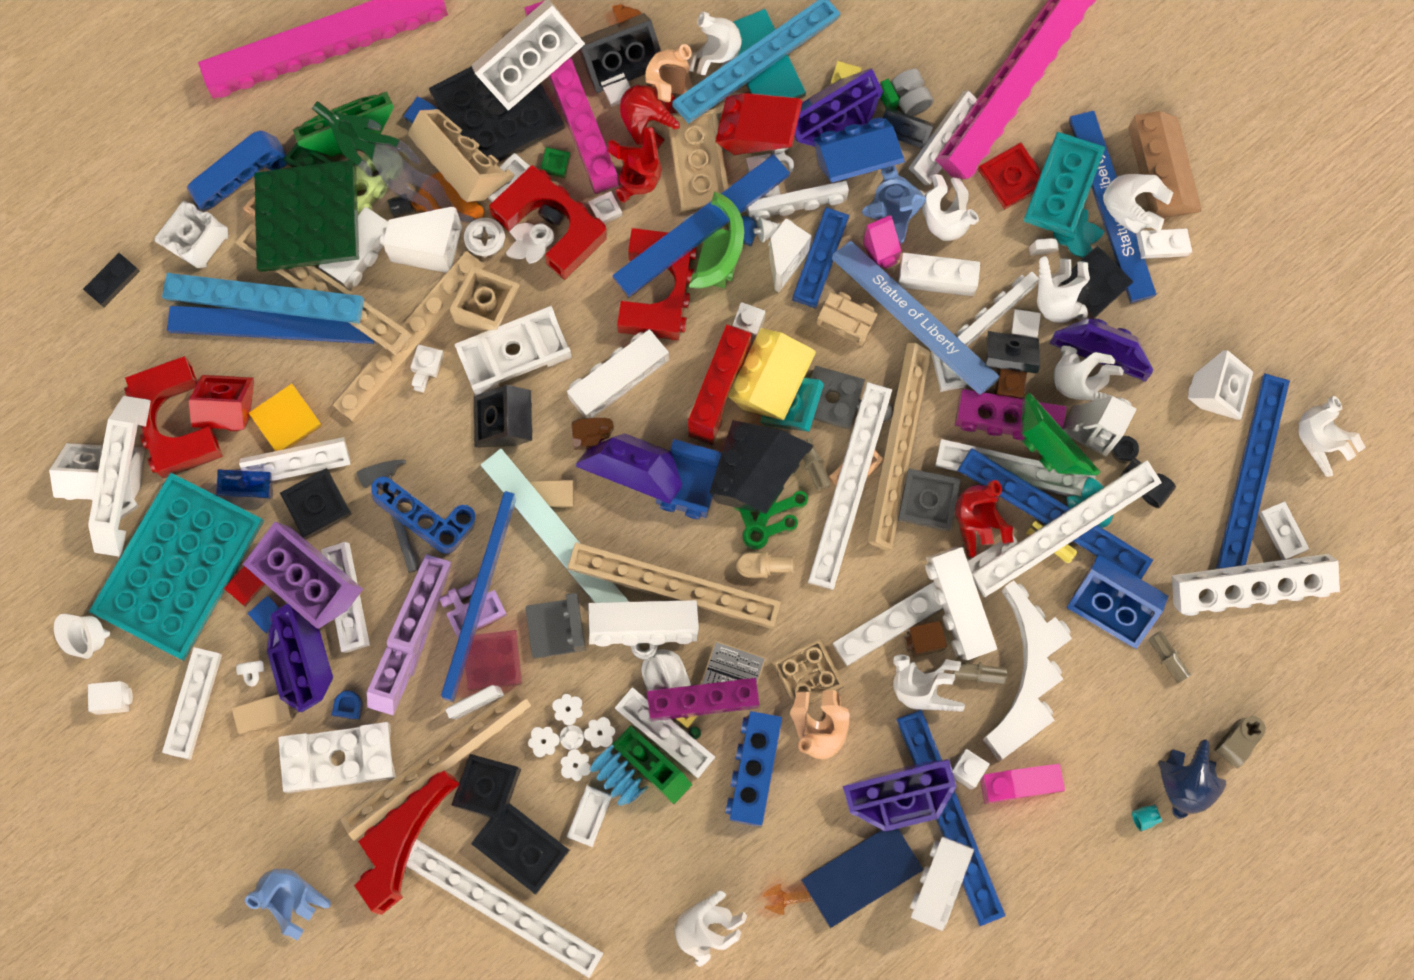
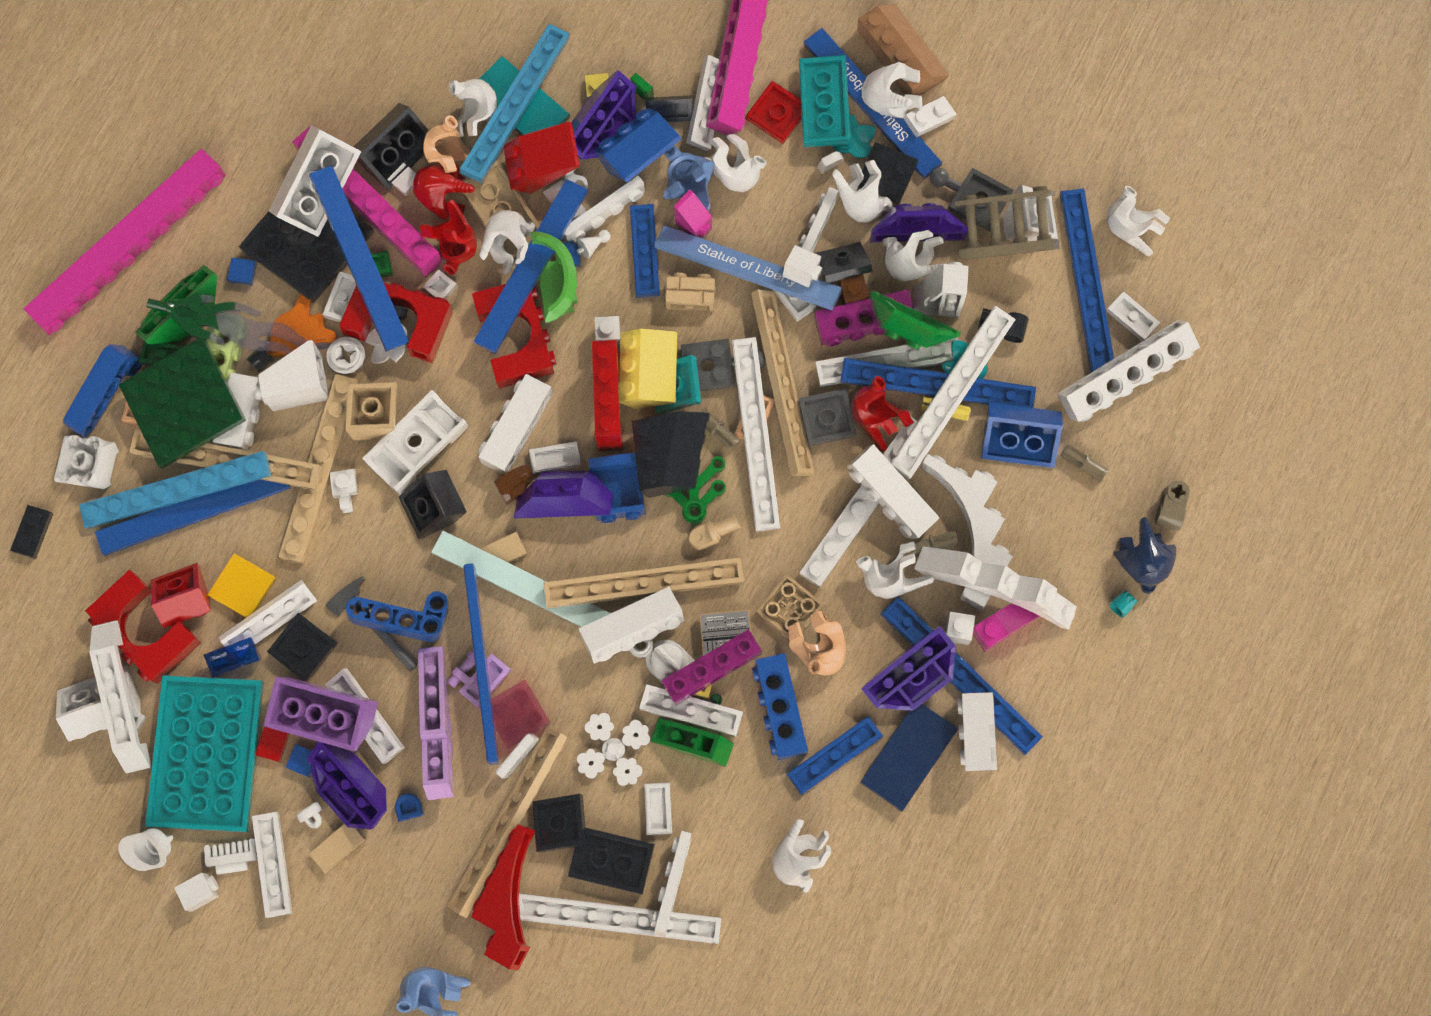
camera: 20 degrees left, 0 degrees up
(156, 683) = (230, 862): none -> white piece
(308, 762) = (397, 871): white piece -> none
(457, 156) = (291, 295): tan wedge -> none
(536, 147) = (358, 258): none -> blue tile
(555, 627) = (558, 662): dark grey bracket -> none
(561, 906) = (668, 894): none -> white plate
(617, 777) = (667, 765): dark azure piece -> none
(624, 12) = (380, 110): clear orange tile -> none
(642, 424) = (555, 457): none -> white tile
(688, 175) = (503, 226): none -> white piece
(787, 251) = (614, 257): white slope -> none
(787, 898) = (855, 803): clear orange bar -> none
(788, 841) = (834, 755): none -> blue tile
(912, 94) = (663, 79): light grey wheel -> none
(925, 639) = (876, 535): reddish brown brick -> none
(939, 274) = (752, 222): white brick -> none
(969, 339) = (802, 266): none -> white brick
(1025, 323) = (843, 233): white tile -> none
(1028, 740) = (997, 580): none -> white arch
(1125, 449) = (973, 305): black tile -> none
(1179, 330) = (974, 184): none -> dark grey plate
(1200, 408) = (1020, 243): none -> dark tan fence

